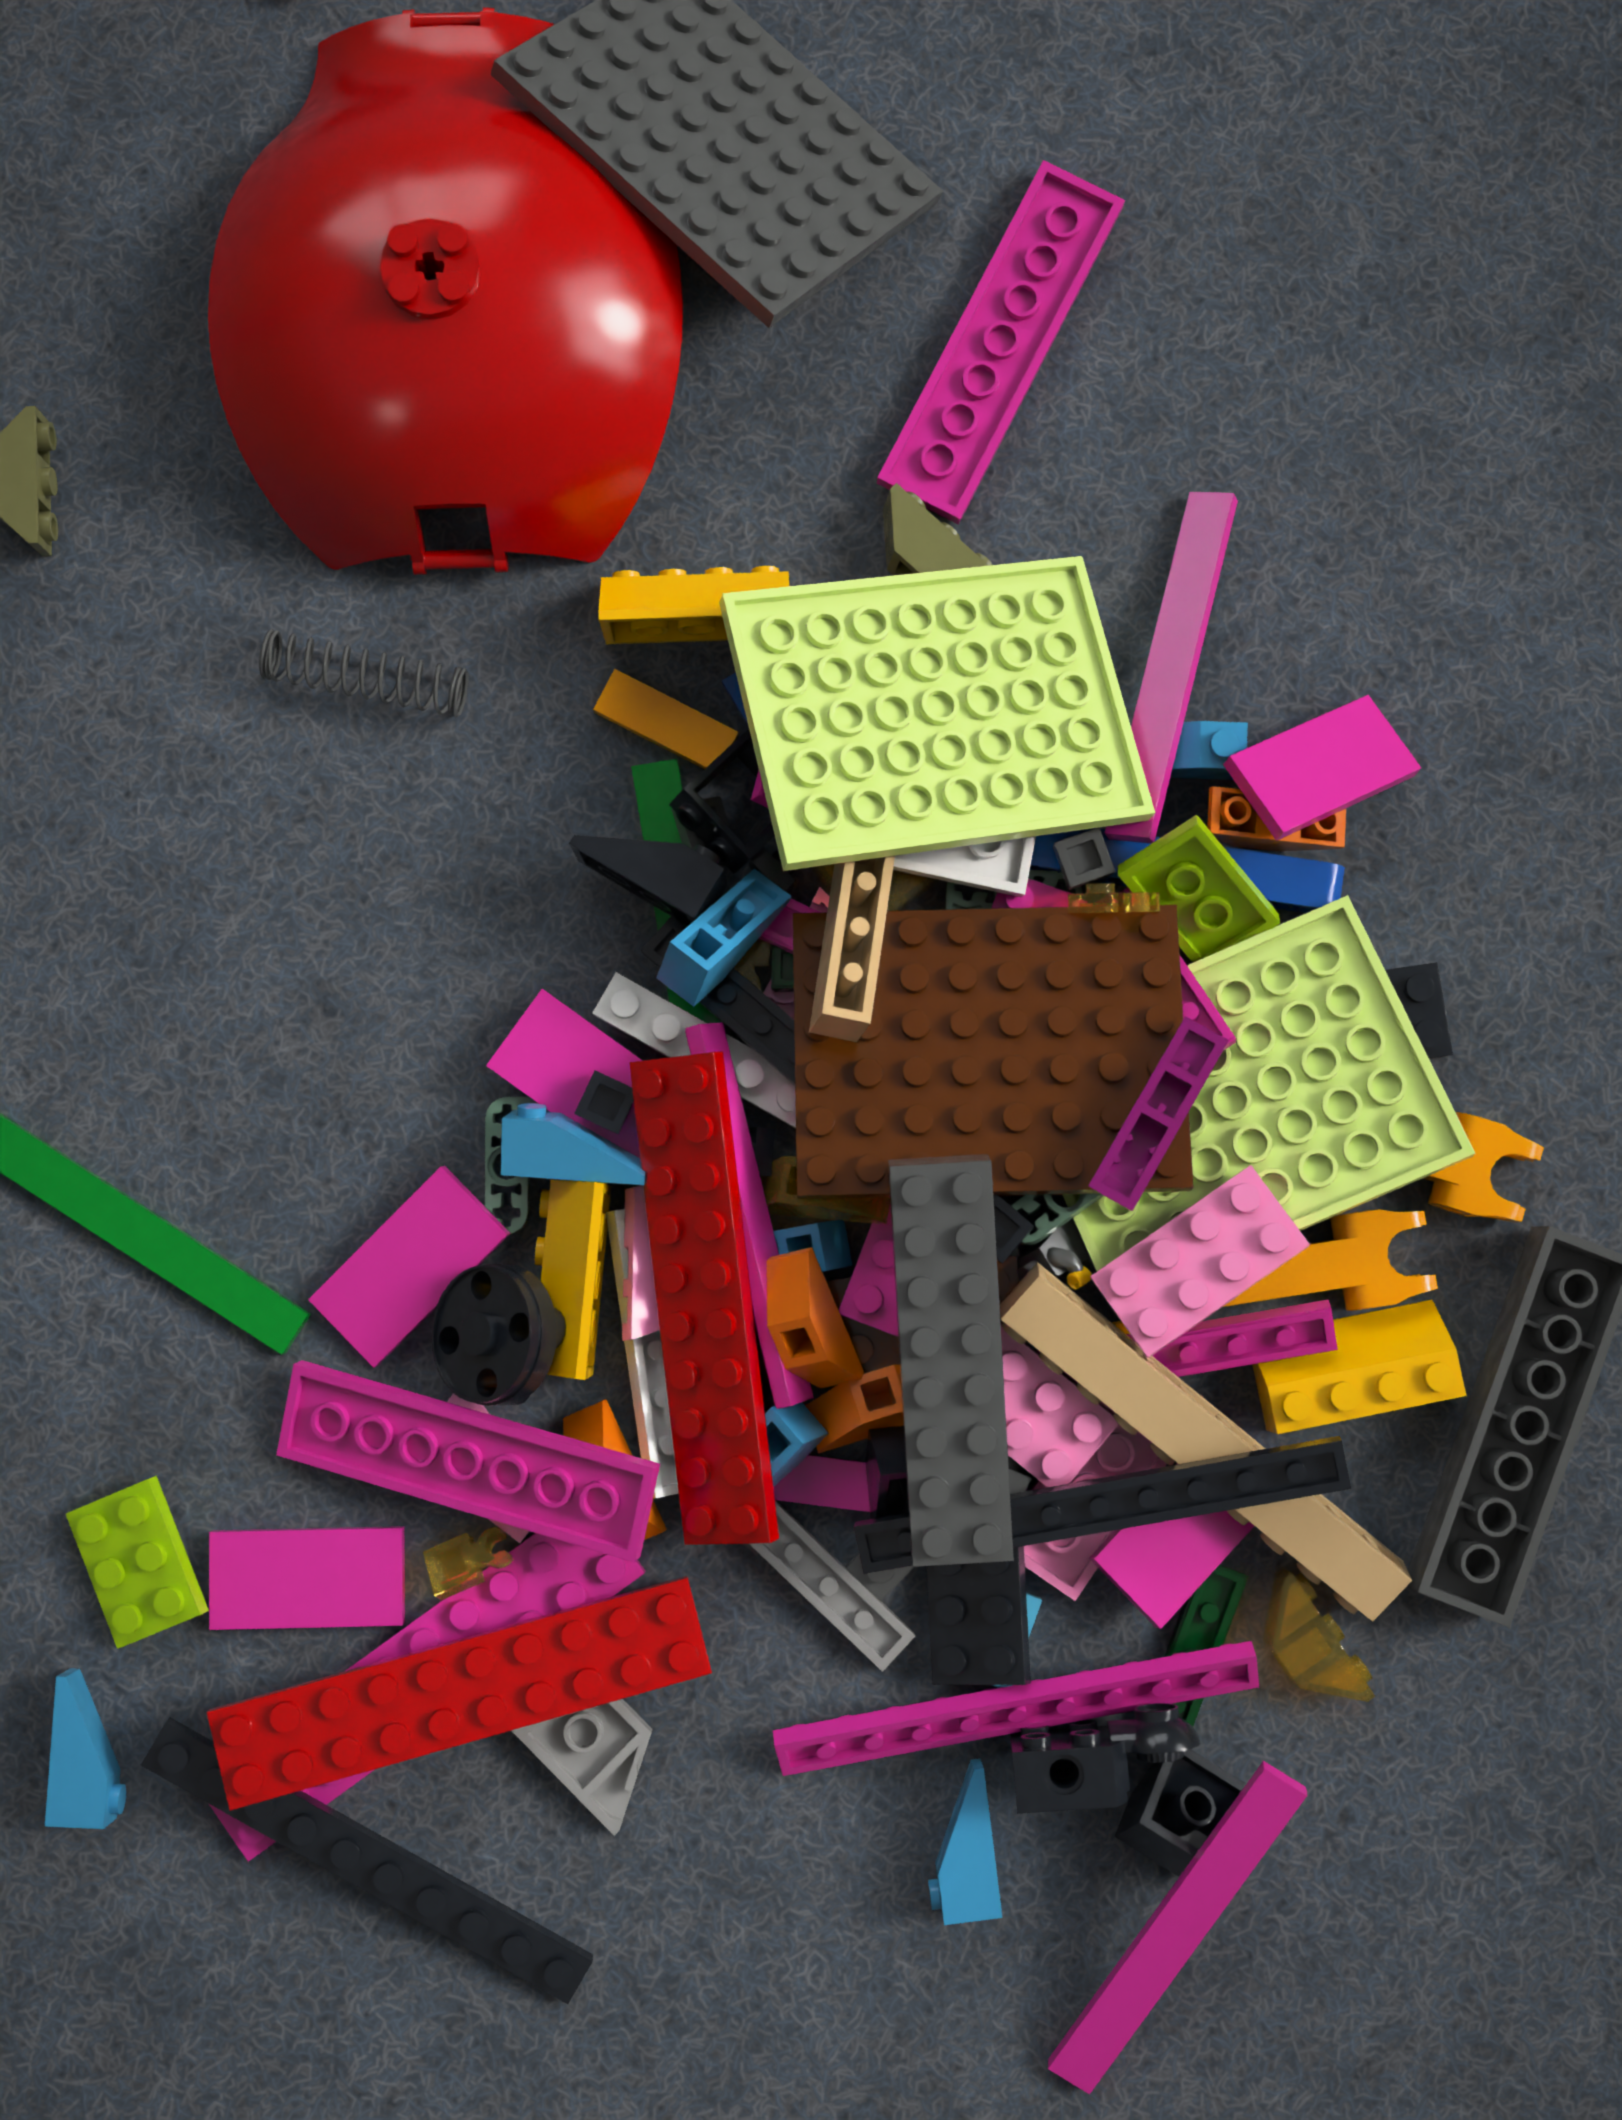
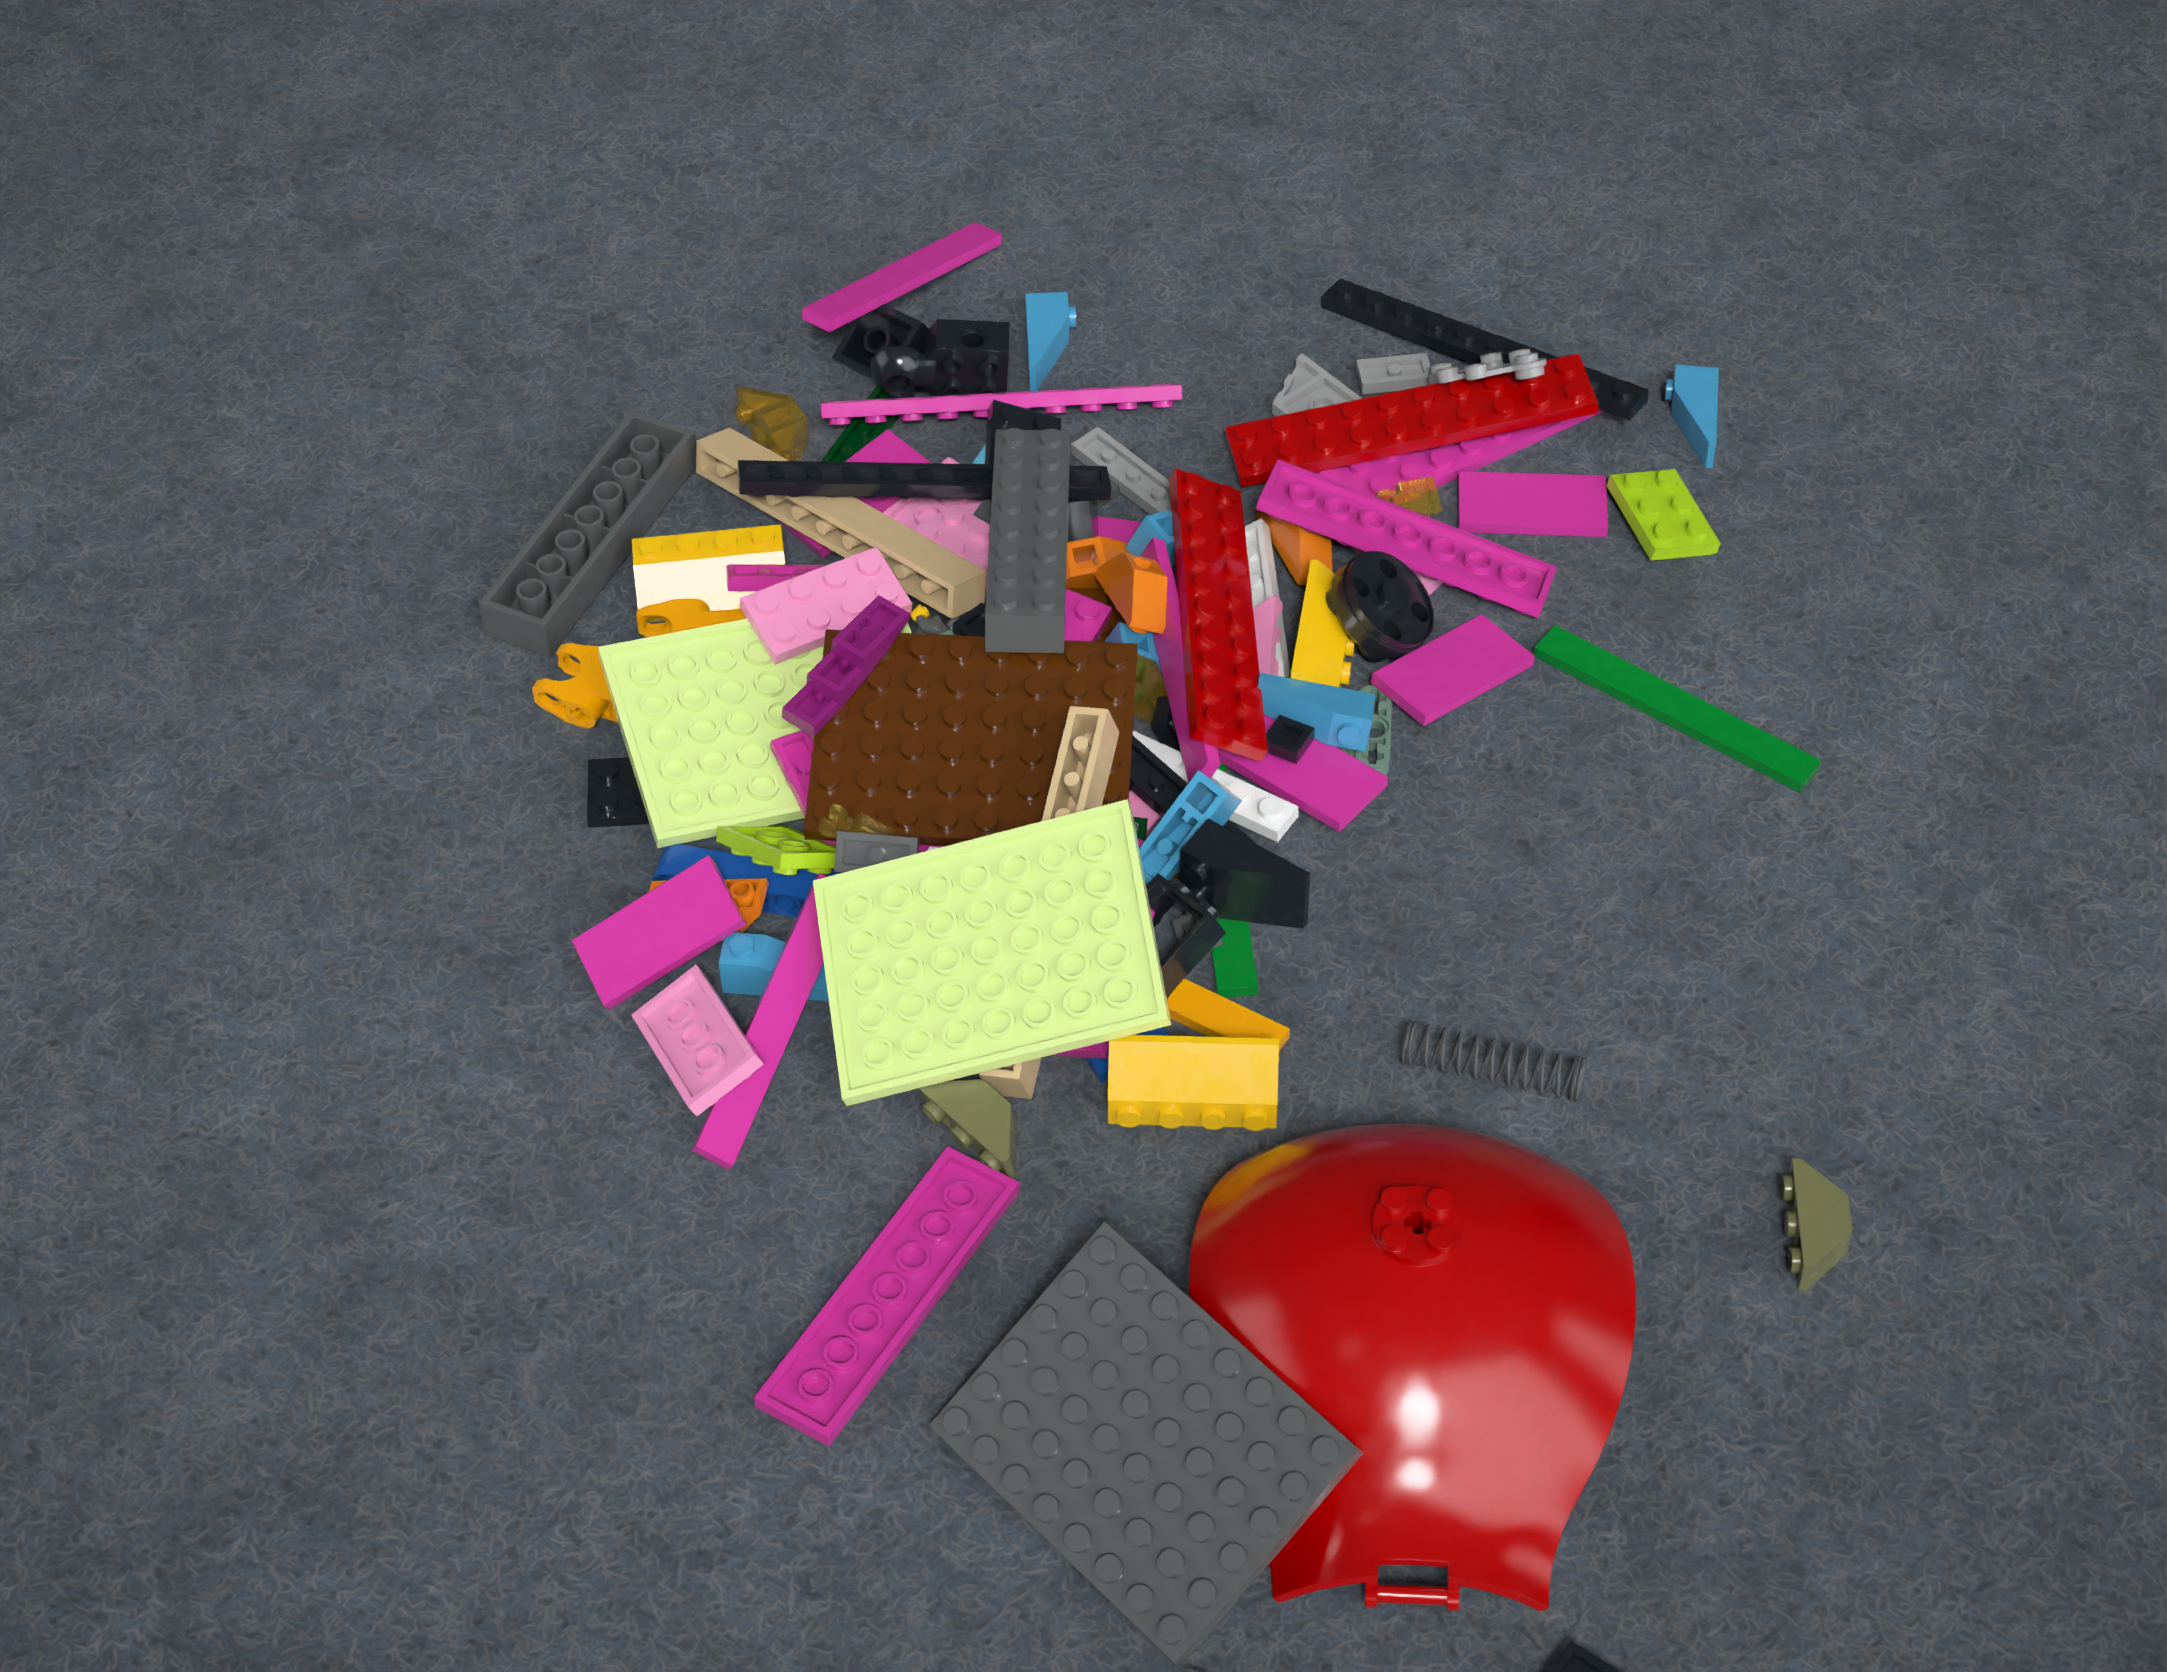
camera: 170 degrees left, 35 degrees down
(300, 1751) = (1521, 362): none -> light grey plant
(488, 1811) = (1392, 373): none -> light grey plate
(1085, 857) = (865, 849): none -> dark grey plate
(1255, 622) = (697, 1040): none -> bright pink plate

